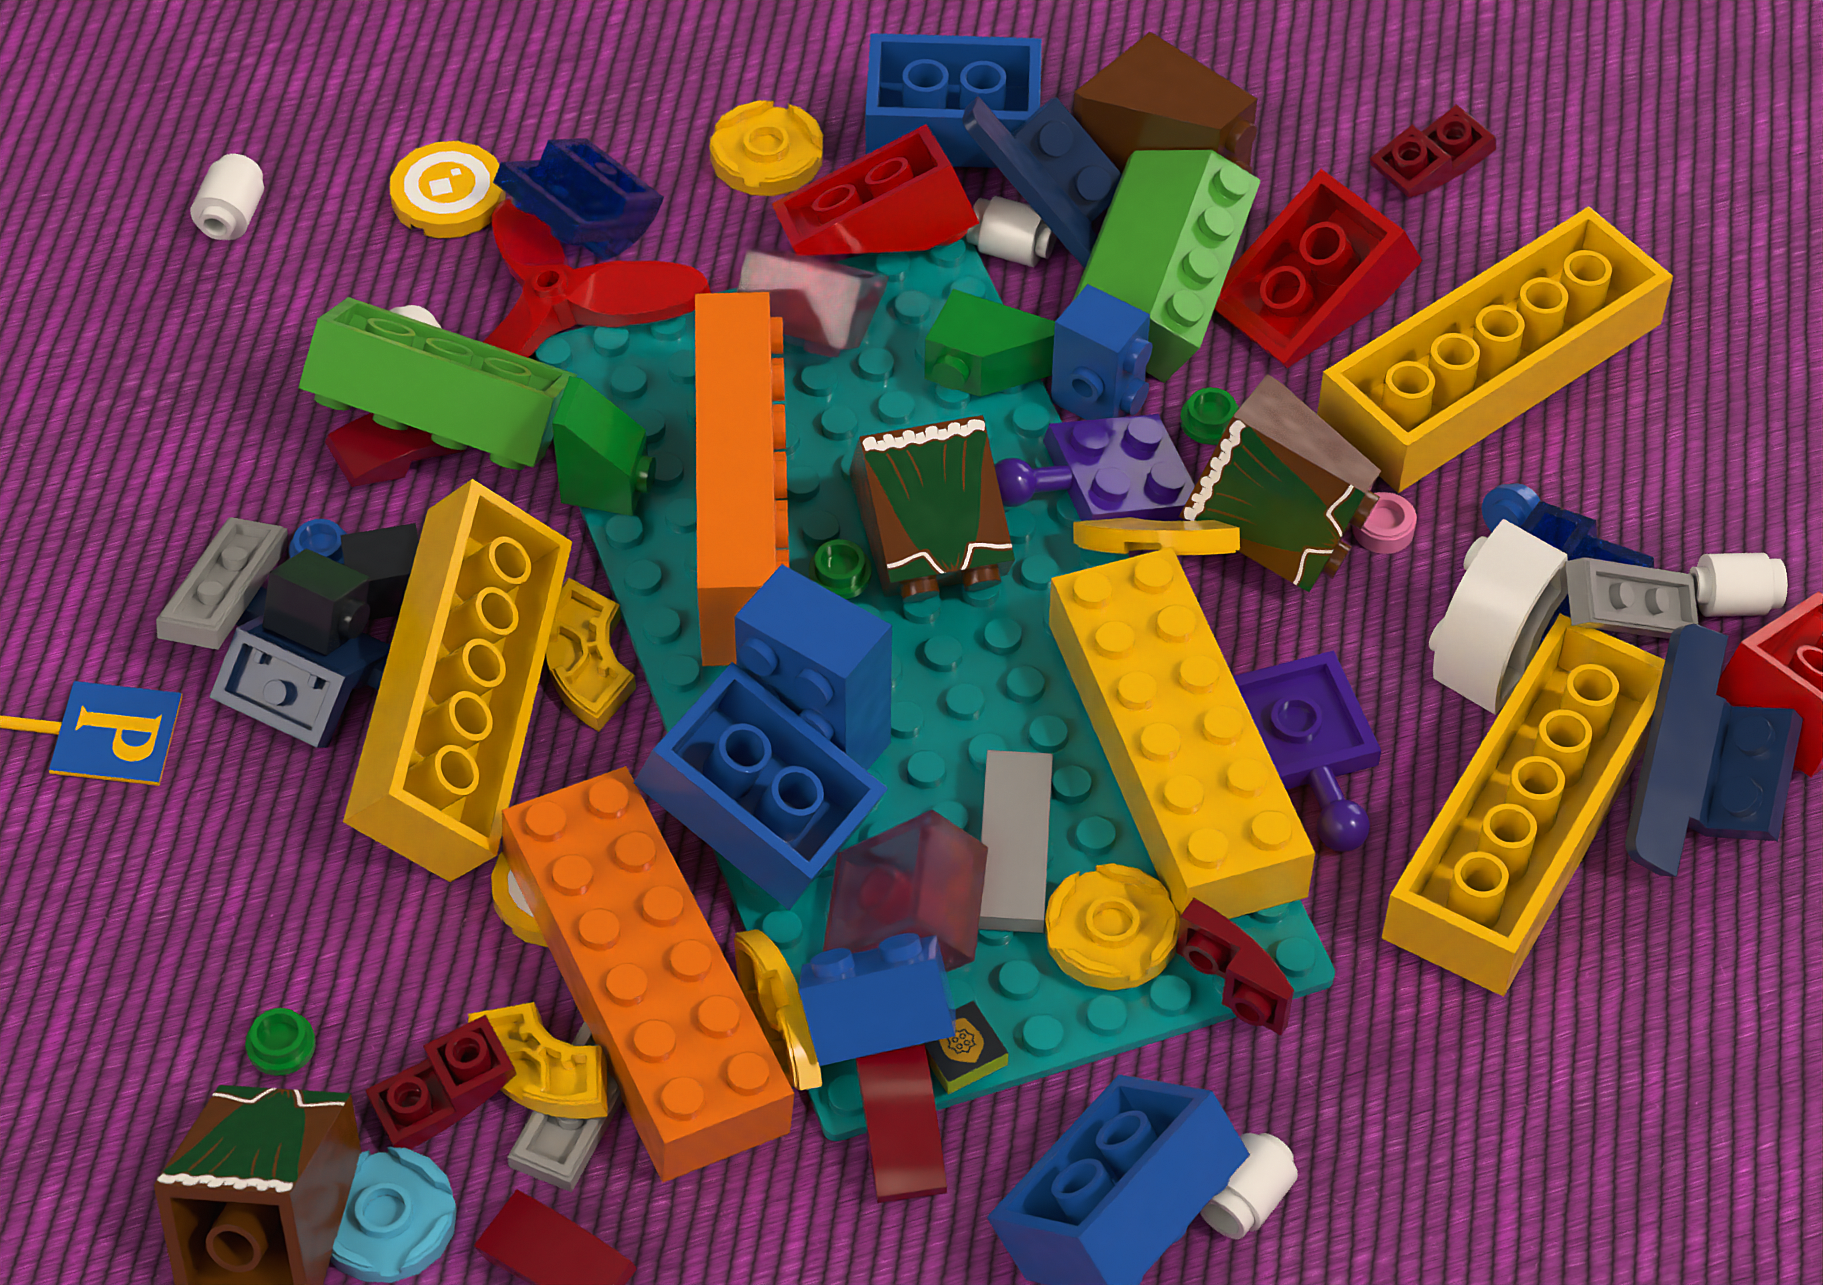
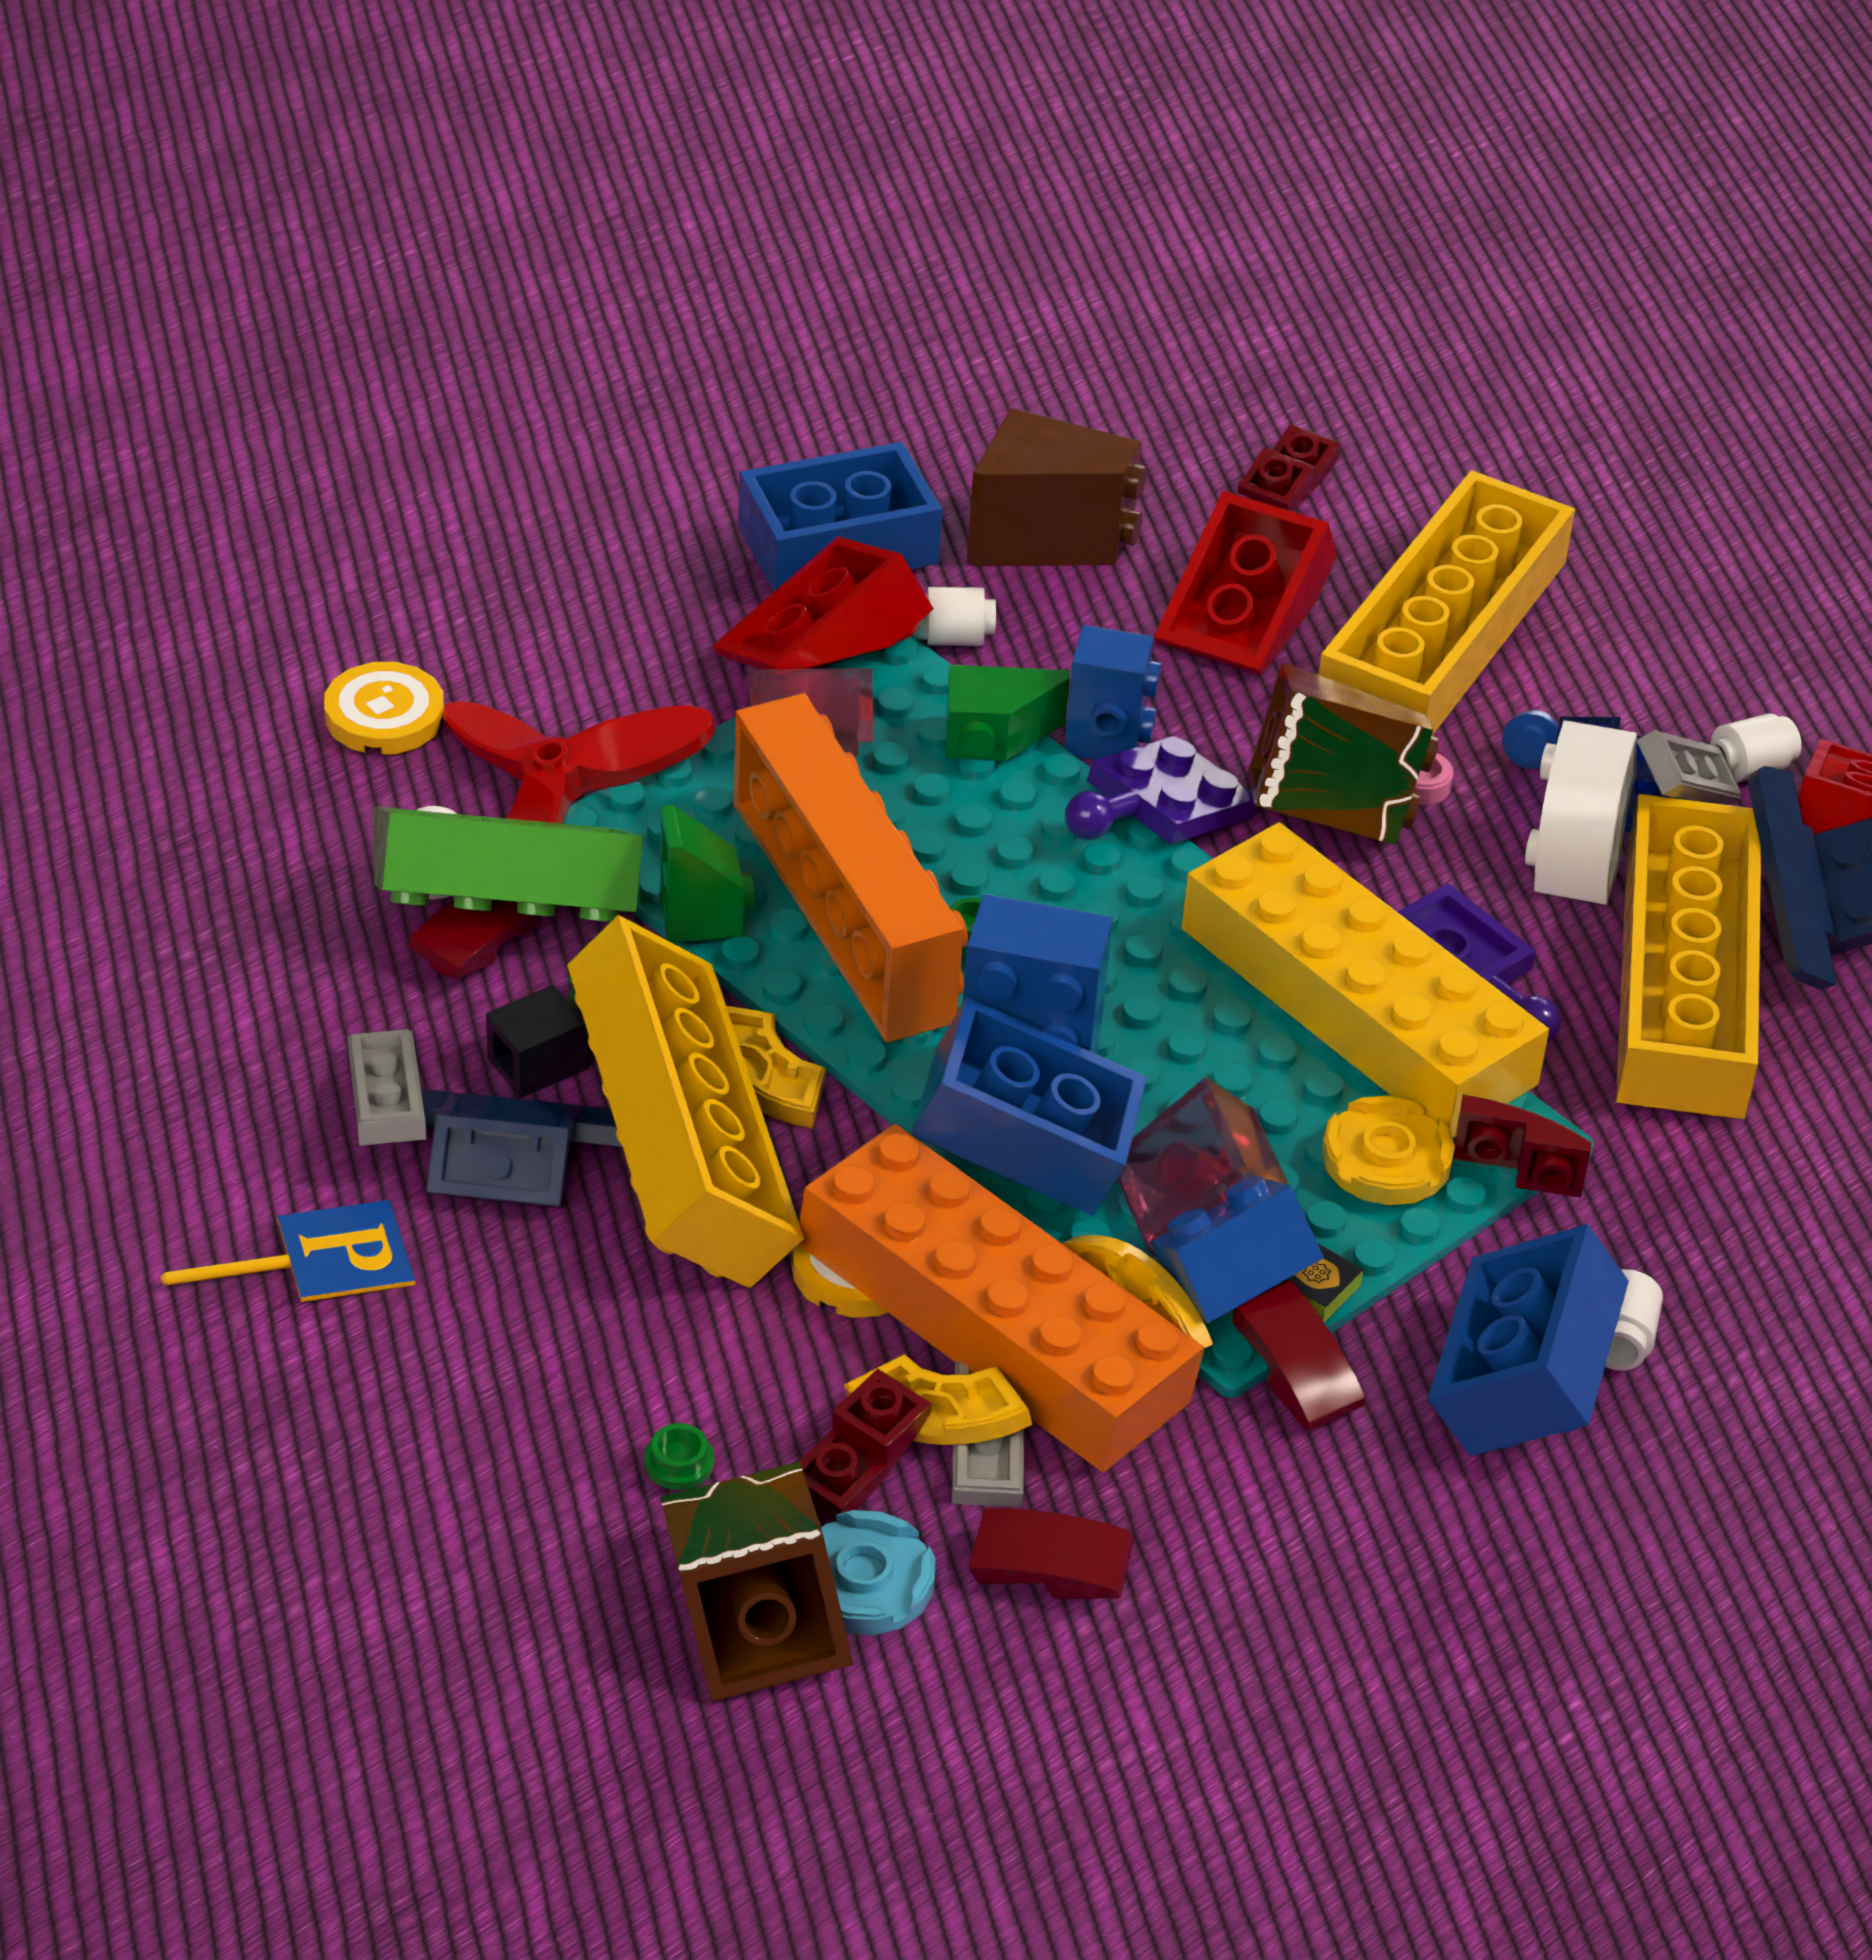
camera: 25 degrees left, 10 degrees down
(228, 197) = (173, 762): white brick -> none
(316, 602) = (501, 1074): black brick -> none
(320, 537) = (455, 1039): blue plate -> none
(582, 196) = (531, 679): clear blue brick -> none
(766, 148) = (672, 604): yellow tile -> none
(932, 508) = (1034, 840): slope -> none
(1017, 840) = (1249, 1070): light grey tile -> none
(1052, 168) = (982, 551): dark blue plate -> none
(1131, 534) = (1248, 824): yellow tile -> none
(1171, 245) = (1114, 572): bright green slope -> none
(1207, 415) = (1222, 727): green plate -> none

